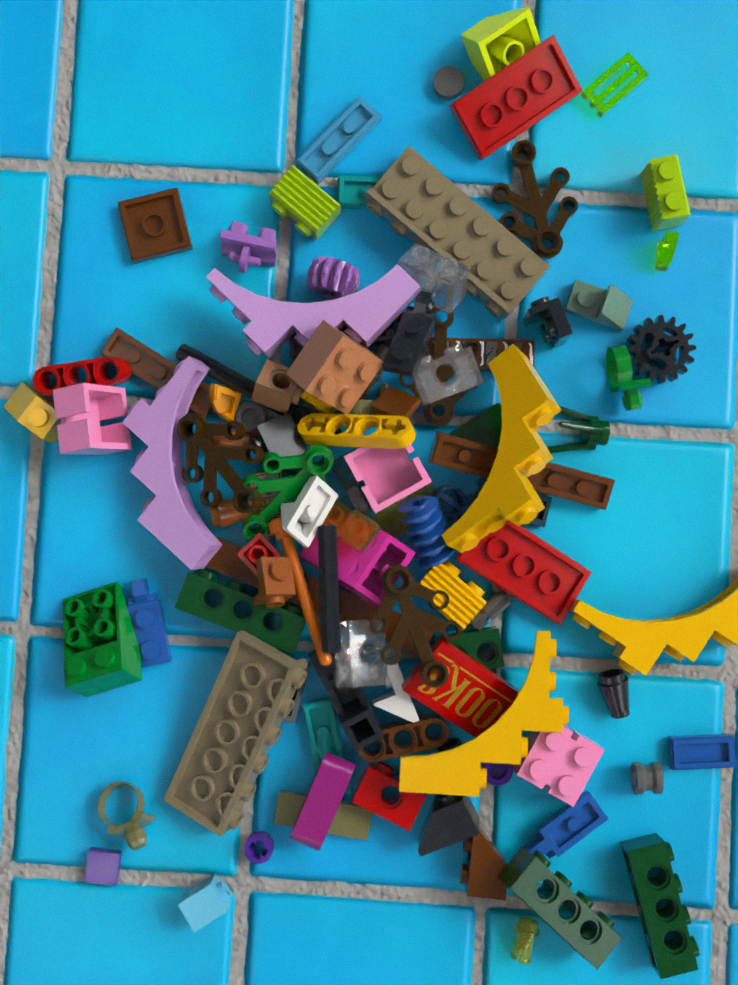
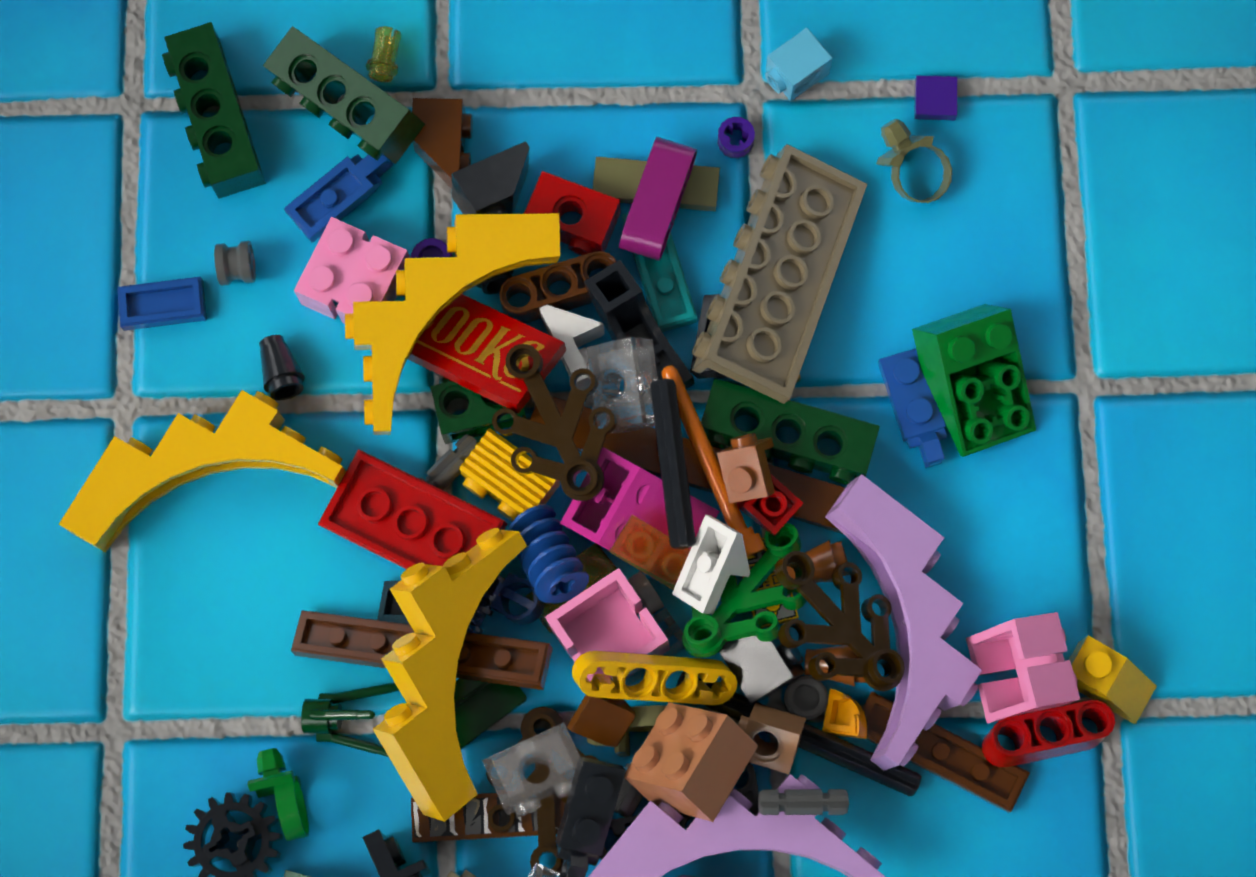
camera: 175 degrees right, 10 degrees down
(257, 329) = (803, 802): none -> dark grey axle

